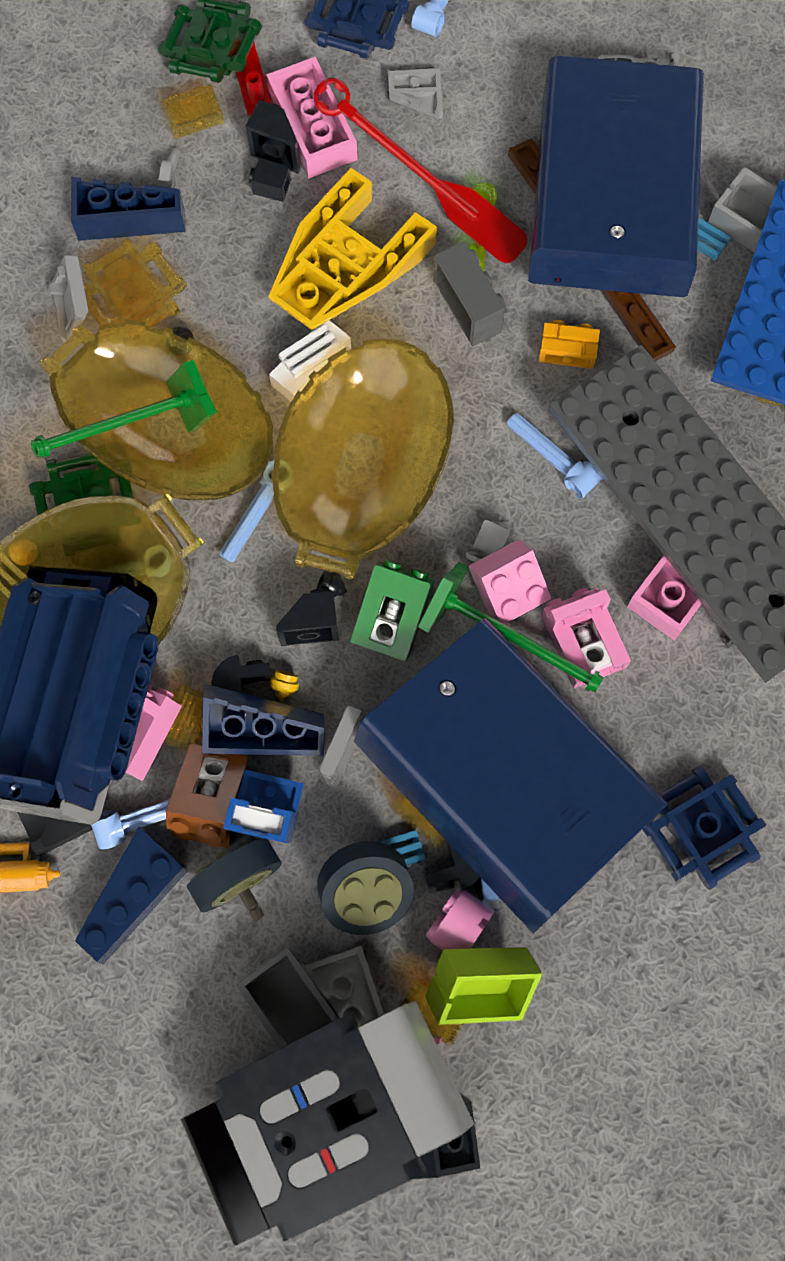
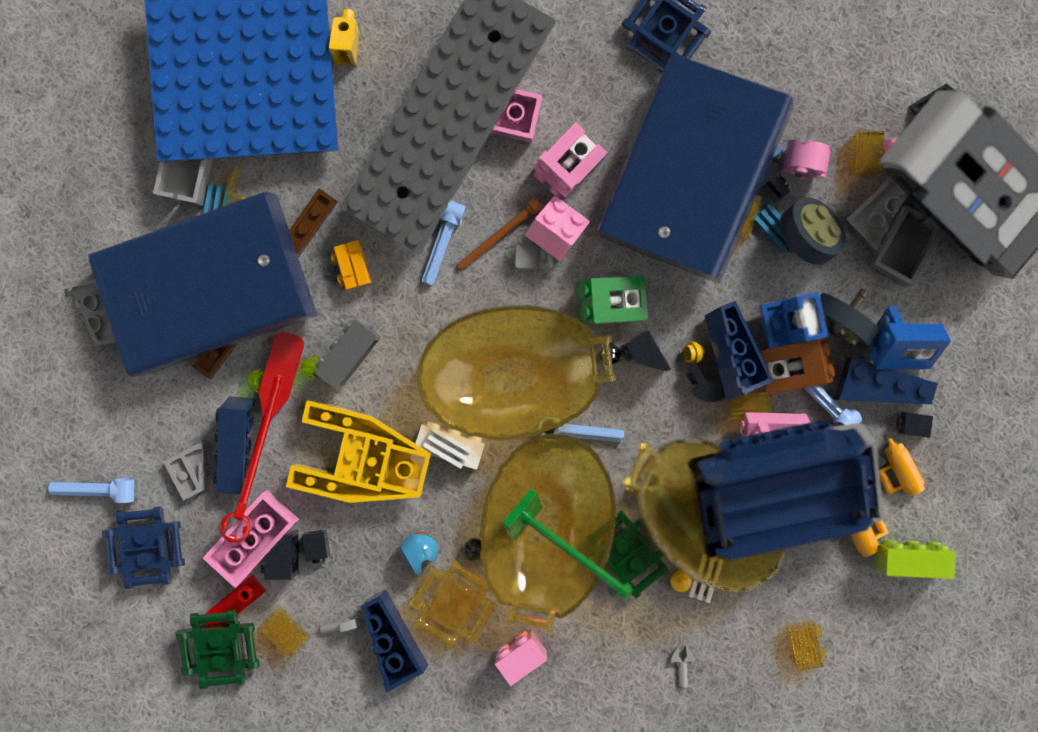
camera: 115 degrees left, 15 degrees up
(31, 328) = (520, 657): none -> bright pink brick
(61, 914) = (914, 424): none -> black brick
(68, 296) = (483, 643): light grey container -> none
(164, 942) = (907, 344): none -> blue brick
(211, 278) = (418, 548): none -> dark azure helmet
(341, 747) = (707, 289): light grey container -> none
(430, 141) = (233, 443): none -> dark blue wedge
(446, 599) = (591, 265): green tile -> none
(483, 985) = (842, 126): lime piece -> none
(550, 573) = (531, 209): none -> dark orange piece
(720, 260) = (232, 183): none -> clear yellow bracket

